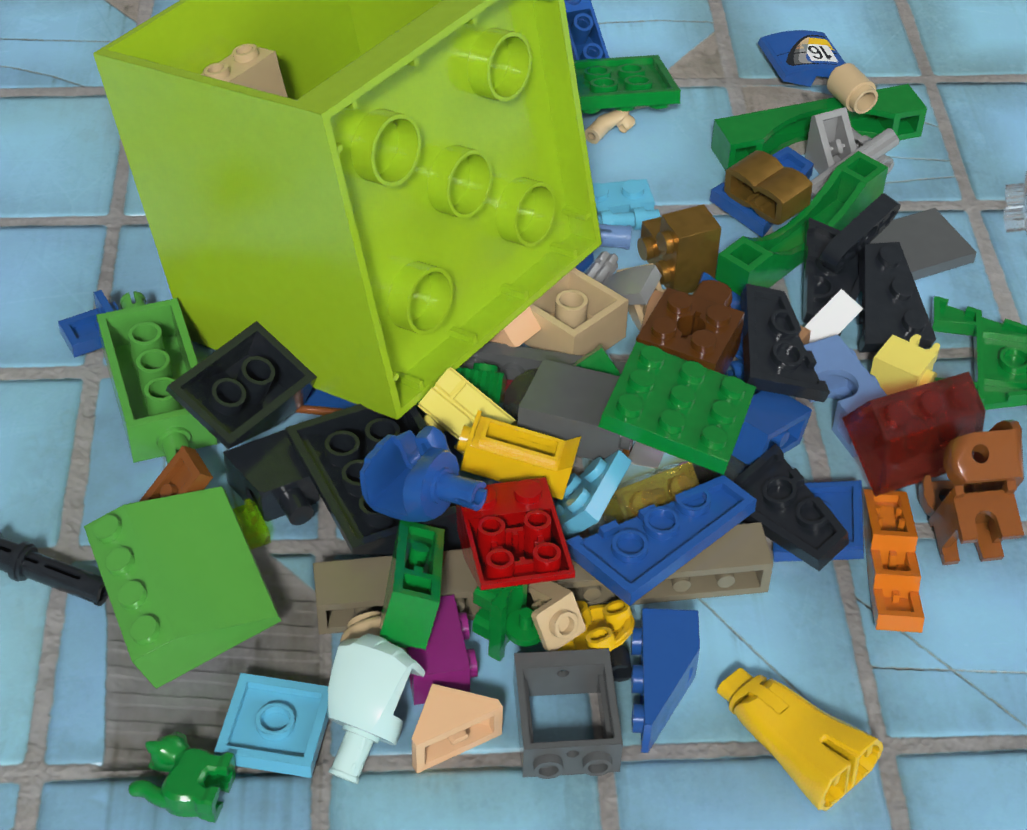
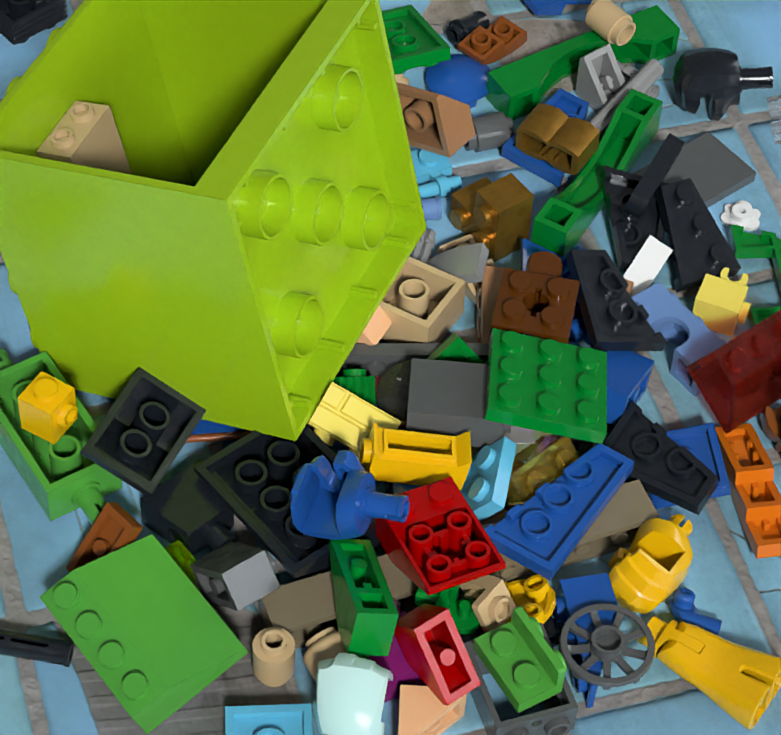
camera: 15 degrees left, 5 degrees up
(152, 344) = (47, 407): none -> yellow brick
(295, 541) = (236, 575): none -> dark grey brick
(309, 631) = (273, 656): none -> tan brick
(478, 655) = (436, 652): none -> red slope
(571, 682) = (522, 661): none -> bright green bracket
(630, 145) = (435, 120): none -> medium nougat slope
(674, 685) = (607, 646): none -> dark grey wheel
(684, 127) = (458, 79): none -> blue dish
(698, 174) = (491, 132): none -> dark grey brick
(702, 84) = (462, 28): none -> black pin
(732, 100) = (494, 42): none -> dark orange slope
(754, 614) = (652, 565): none -> yellow piece
(779, 667) = (685, 611): none -> blue arm
(951, 289) = (741, 215): none -> white plant
(958, 155) = (718, 74): none -> black piece

